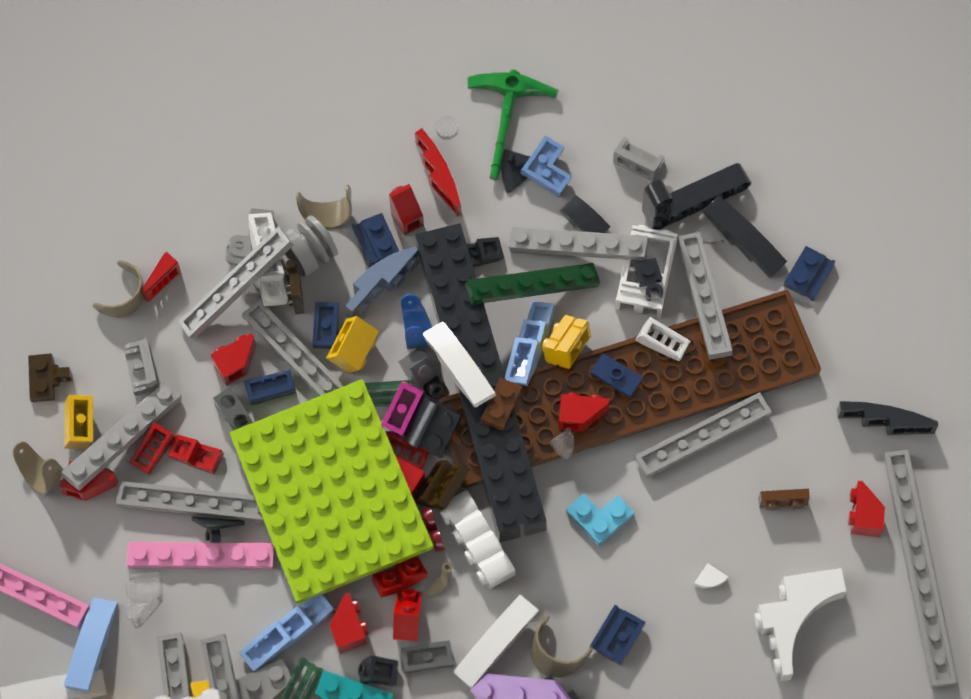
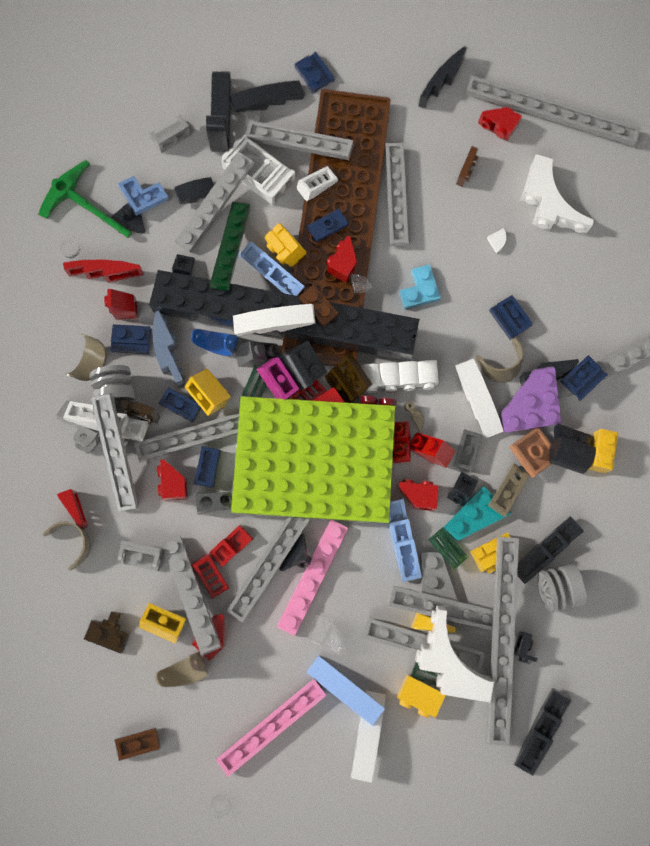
camera: 70 degrees left, 10 degrees up
(649, 275) = (266, 167): black plate -> none

